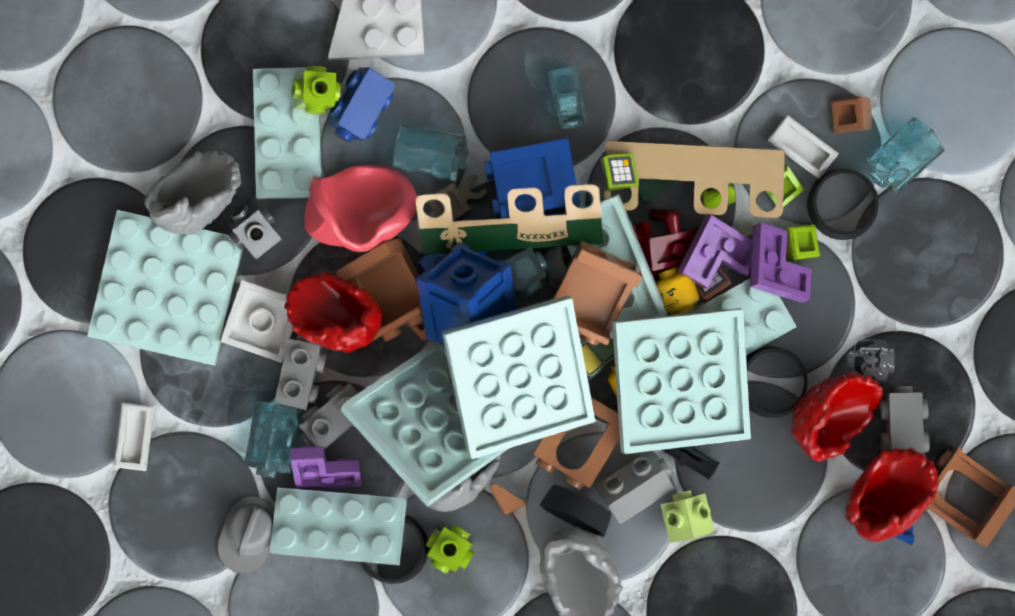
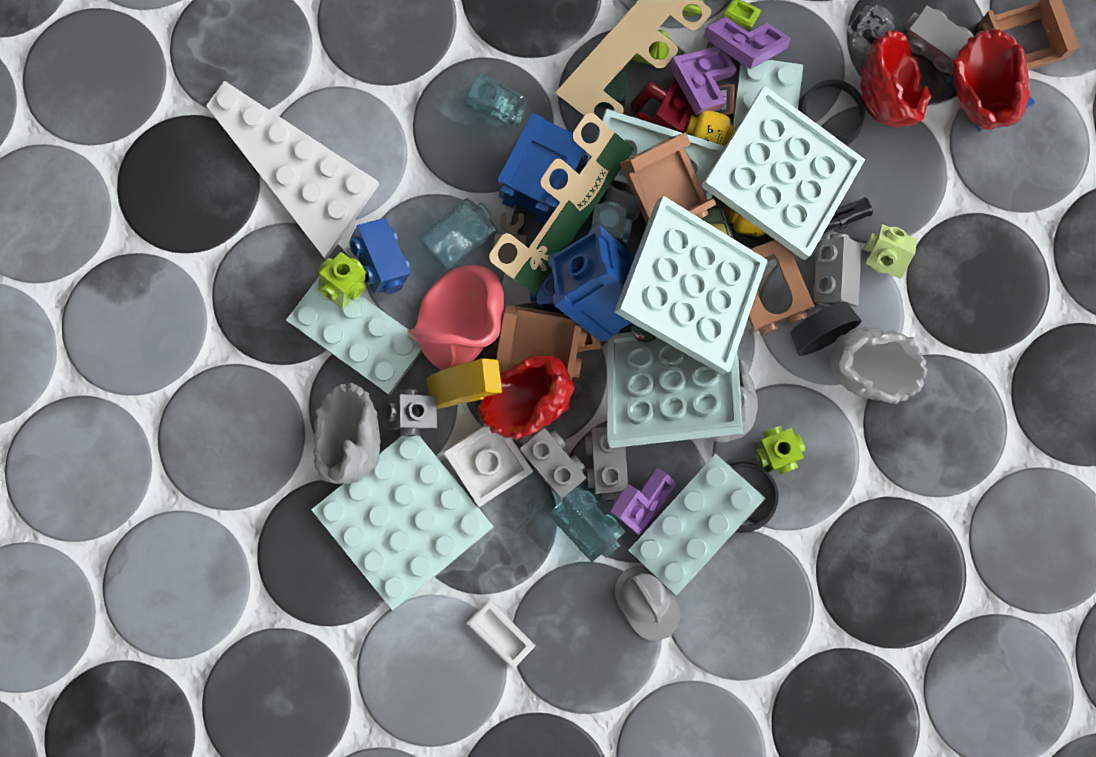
camera: 55 degrees left, 5 degrees down
(306, 255) = (465, 382): none -> yellow slope
(507, 501) = (773, 379): nougat slope -> none
(619, 171) = (586, 98): slope -> none

